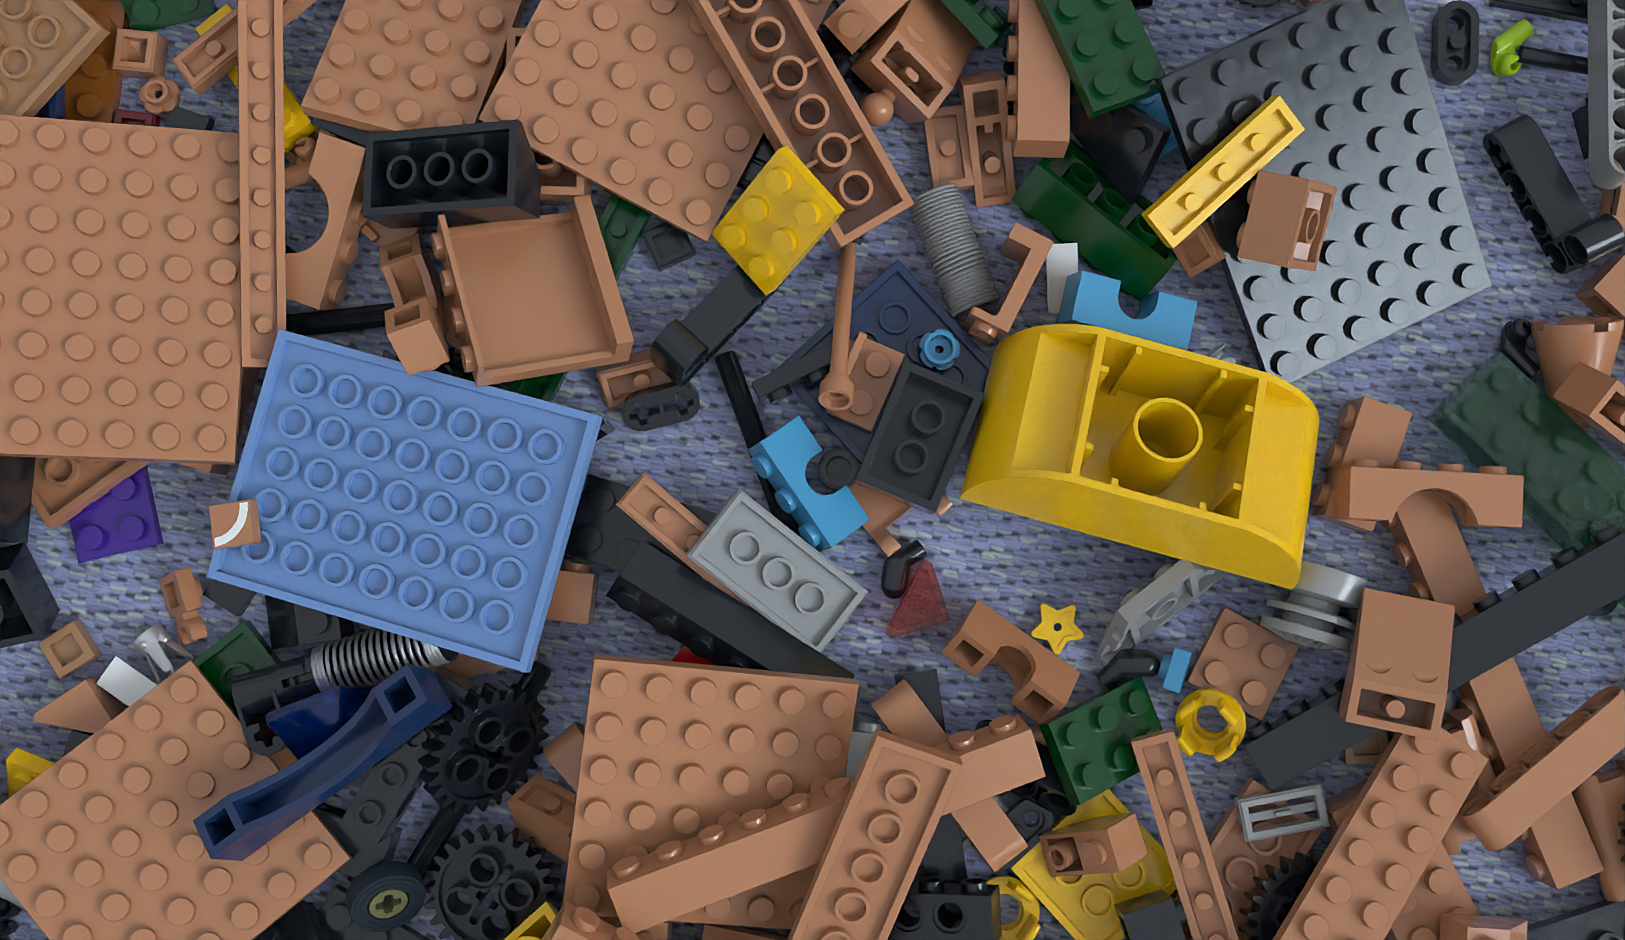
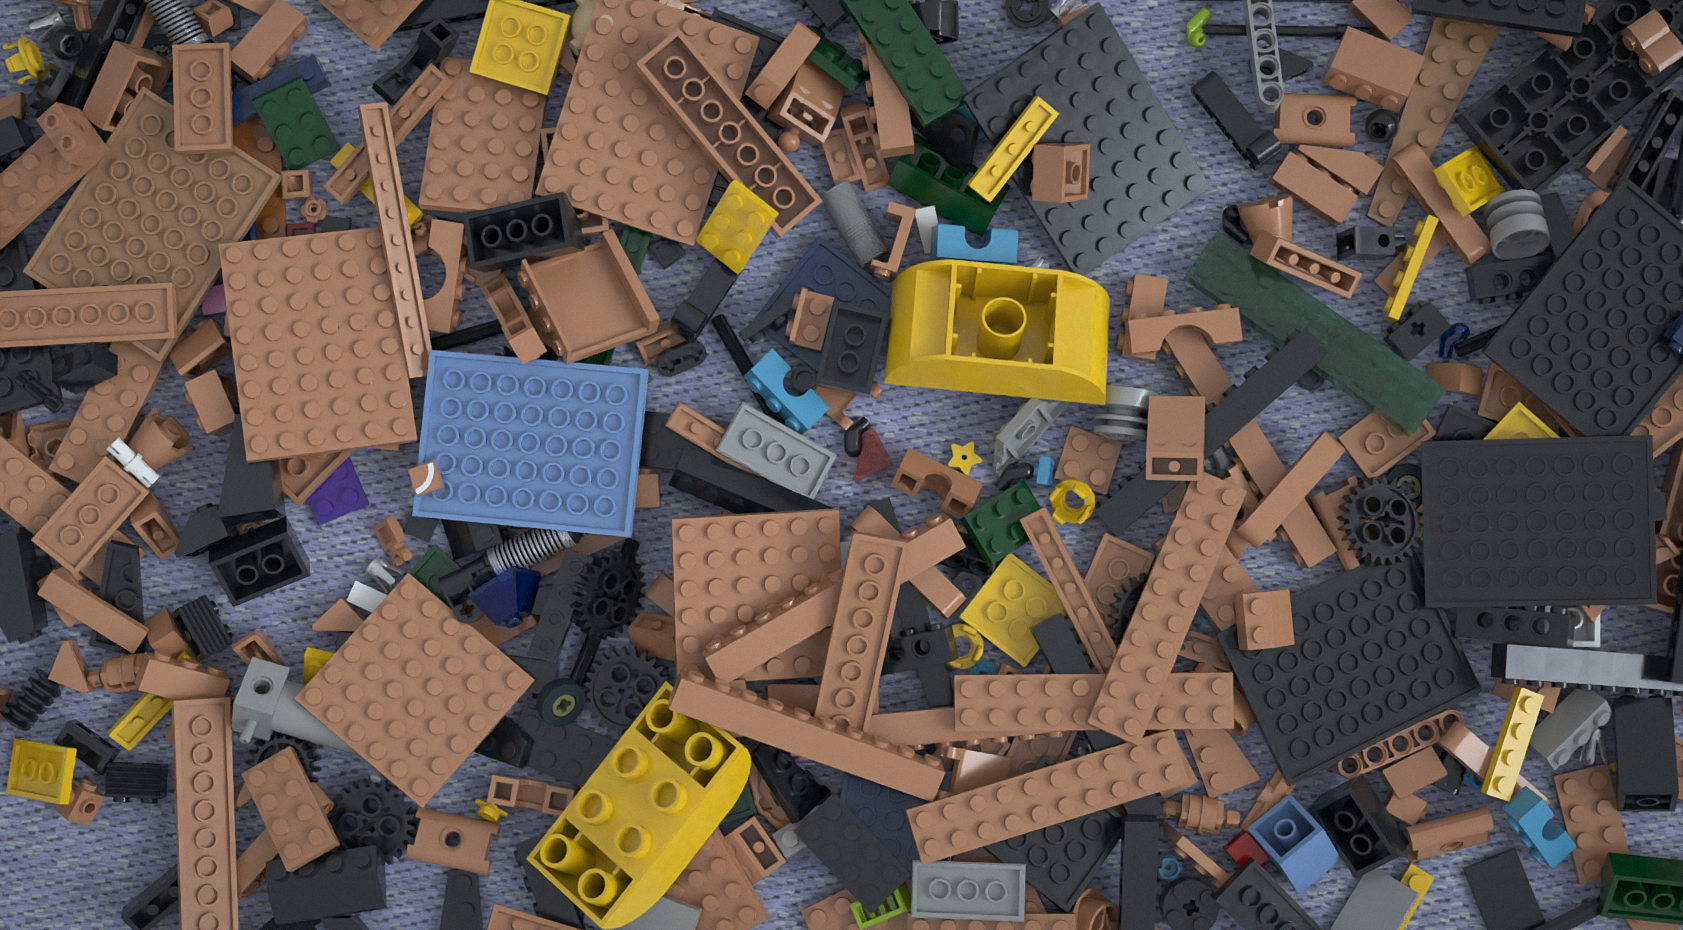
camera: 15 degrees left, 0 degrees up
(70, 649) = (323, 582): medium nougat plate -> none
(263, 810) = (547, 582): dark blue arch -> none
(837, 389) = (793, 326): nougat piece -> none
(941, 338) = (856, 282): dark azure plate -> none
(1094, 846) = (1008, 591): nougat slope -> none
(1199, 250) = (1011, 197): nougat tile -> none
(1246, 817) = (1103, 557): light grey tile -> none
(1459, 45) = (1161, 31): black plate -> none

